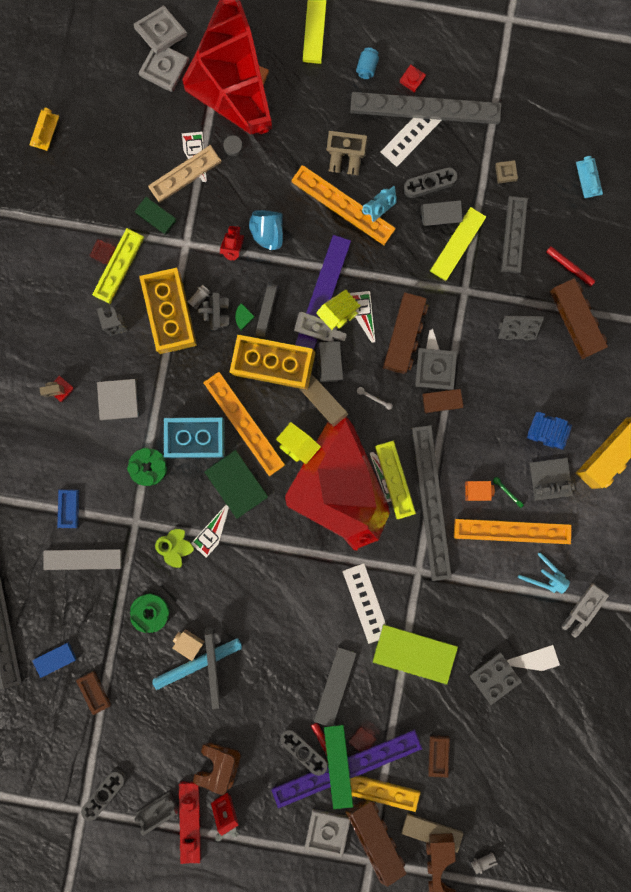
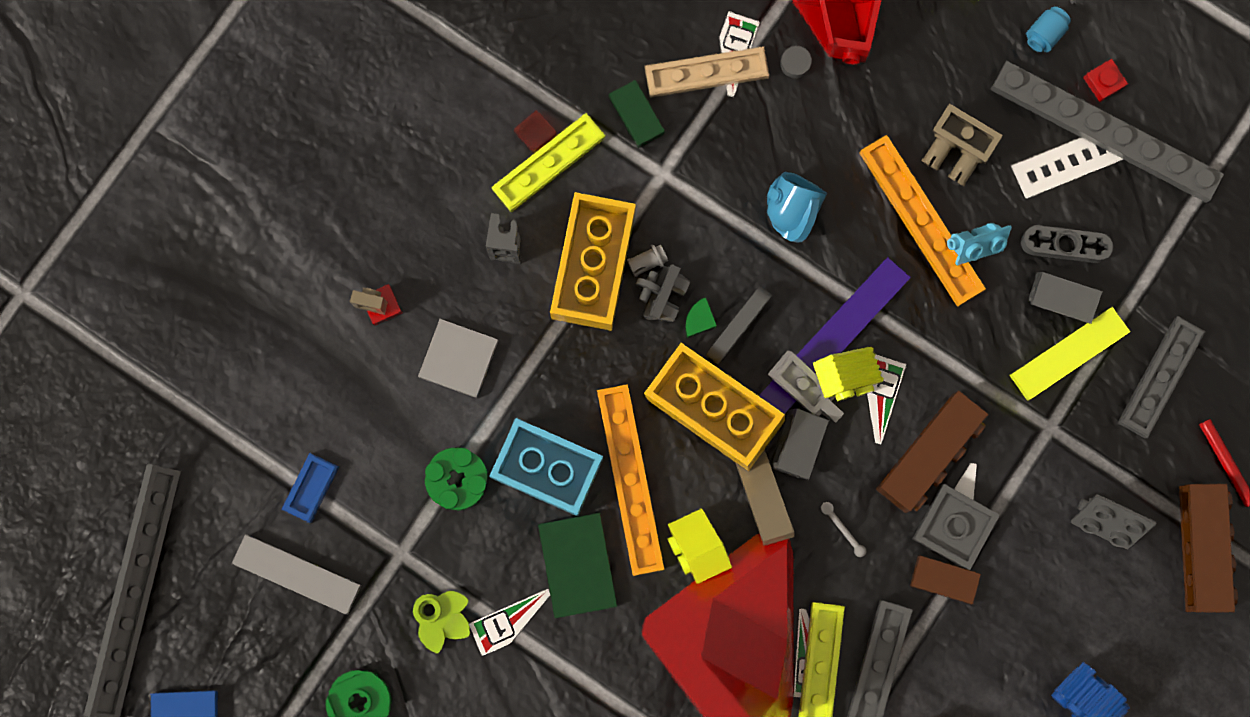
camera: 20 degrees right, 5 degrees down
(232, 243) = (732, 204): red hips -> none
(506, 172) = (1189, 278): dark tan plate -> none

